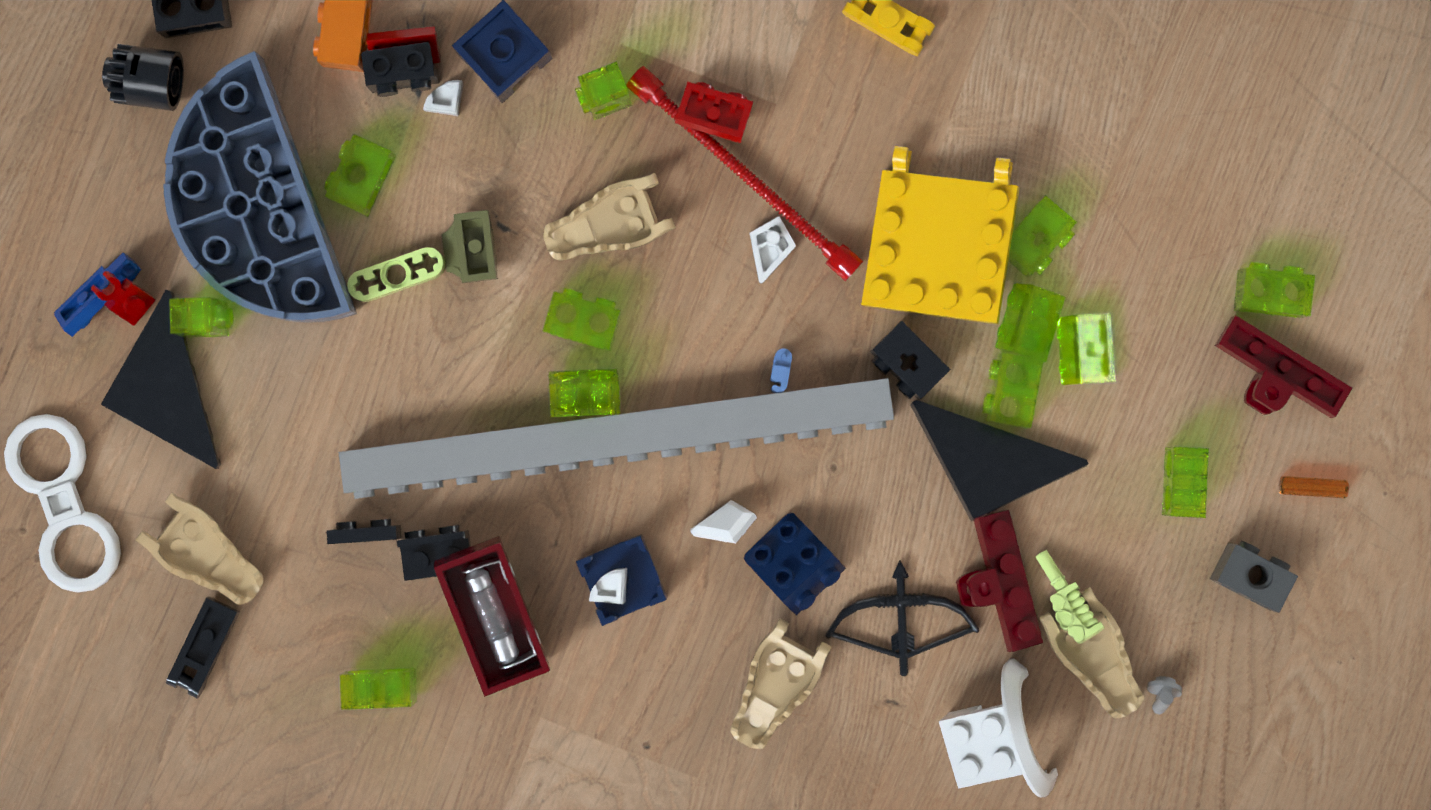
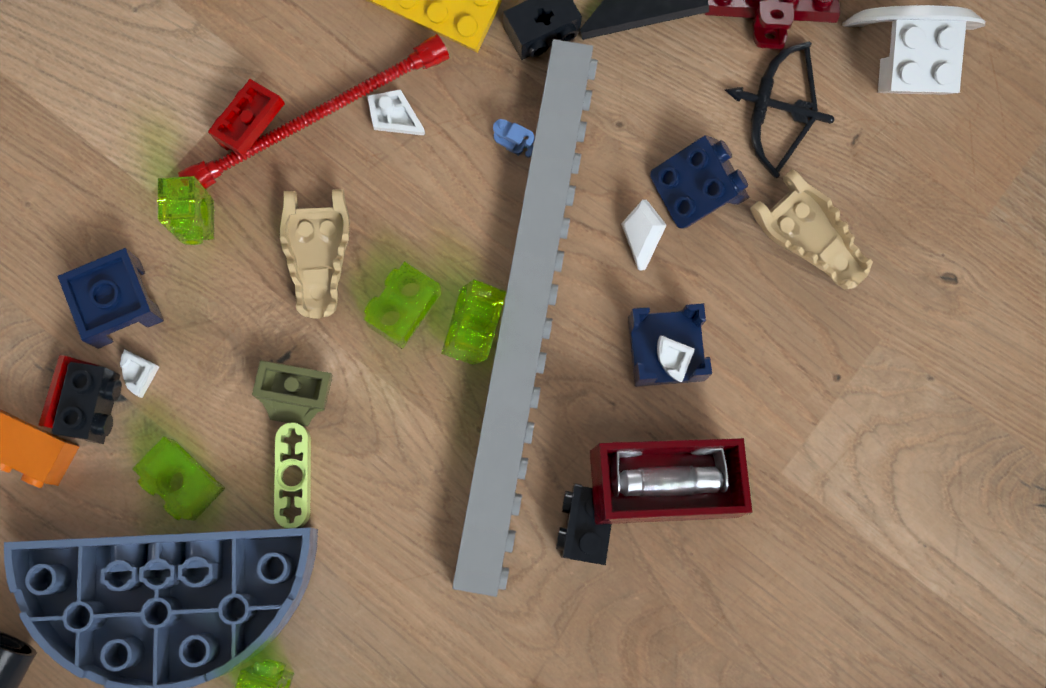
camera: 75 degrees left, 10 degrees down
(349, 533) = (539, 606): black plate -> none
(378, 688) = (710, 626): clear neon green brick -> none

